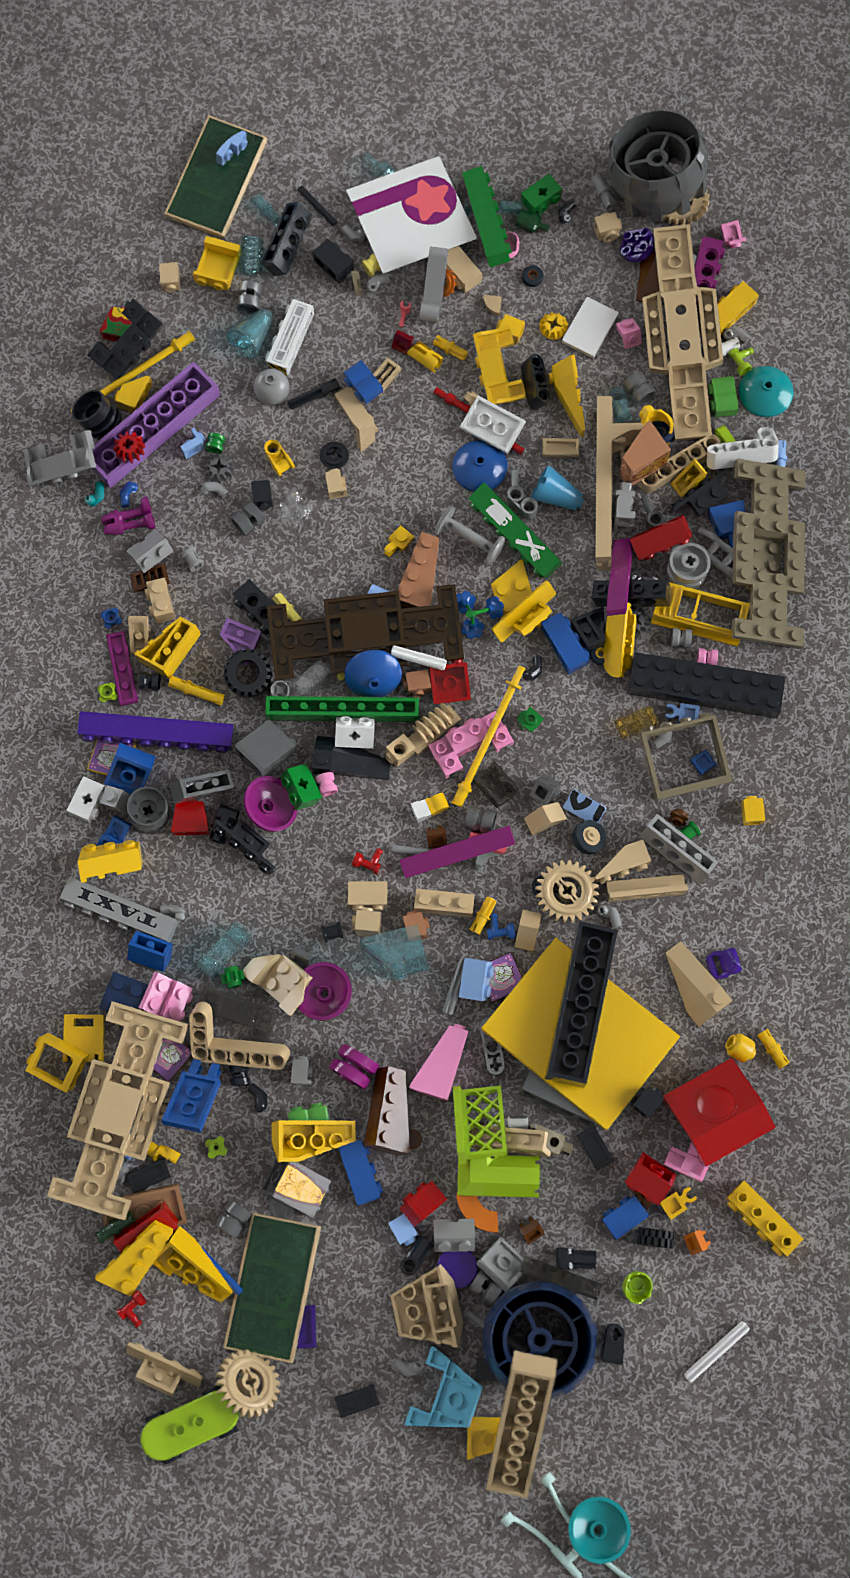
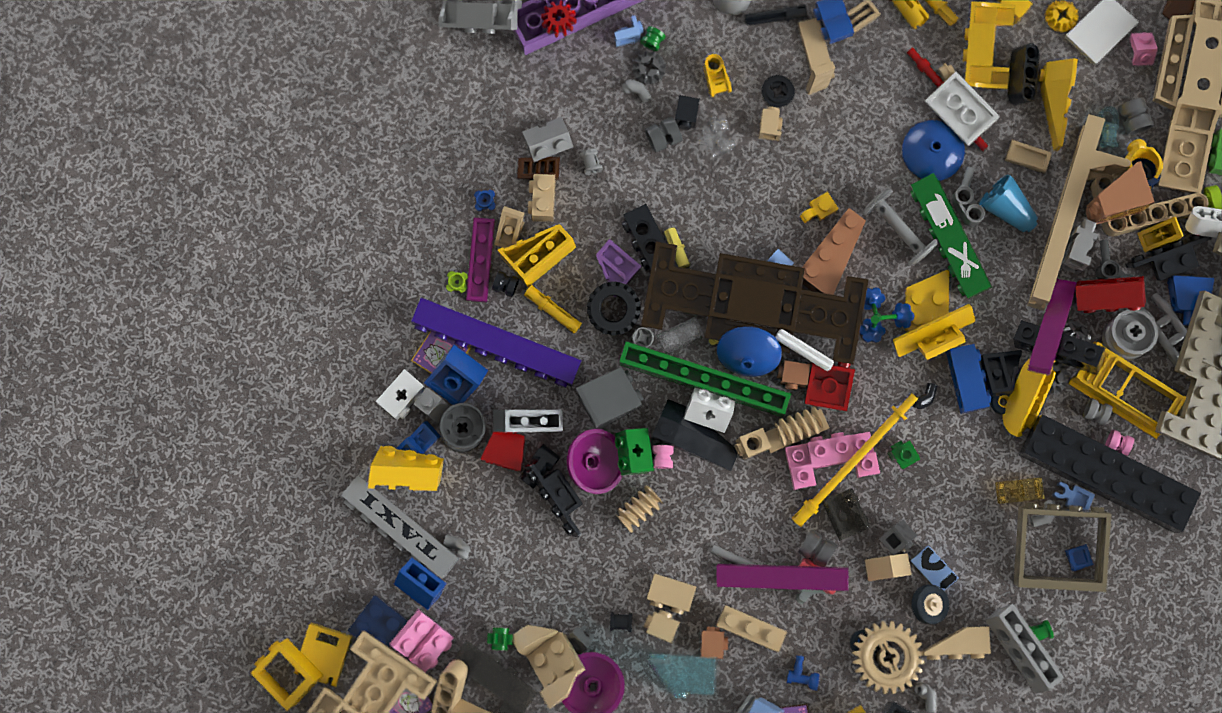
camera: 15 degrees right, 5 degrees up
(97, 497) = (508, 61): teal arm -> none
(115, 520) = (524, 91): magenta piece -> none
(125, 492) = (538, 66): blue arm -> none
(216, 958) = (499, 607): clear light blue arch -> none
(319, 832) = (638, 508): none -> tan piece
(372, 865) = (685, 561): red piece -> none
(429, 807) = (766, 516): leg -> none
(436, 837) = (764, 552): reddish brown tile -> none
(483, 915) = (789, 654): yellow axle -> none
(528, 930) = (833, 685): tan slope -> none
(646, 888) = (975, 679): tan fence -> none
(678, 817) = (1034, 612): reddish brown plate -> none
(752, 811) = (1118, 630): yellow brick -> none

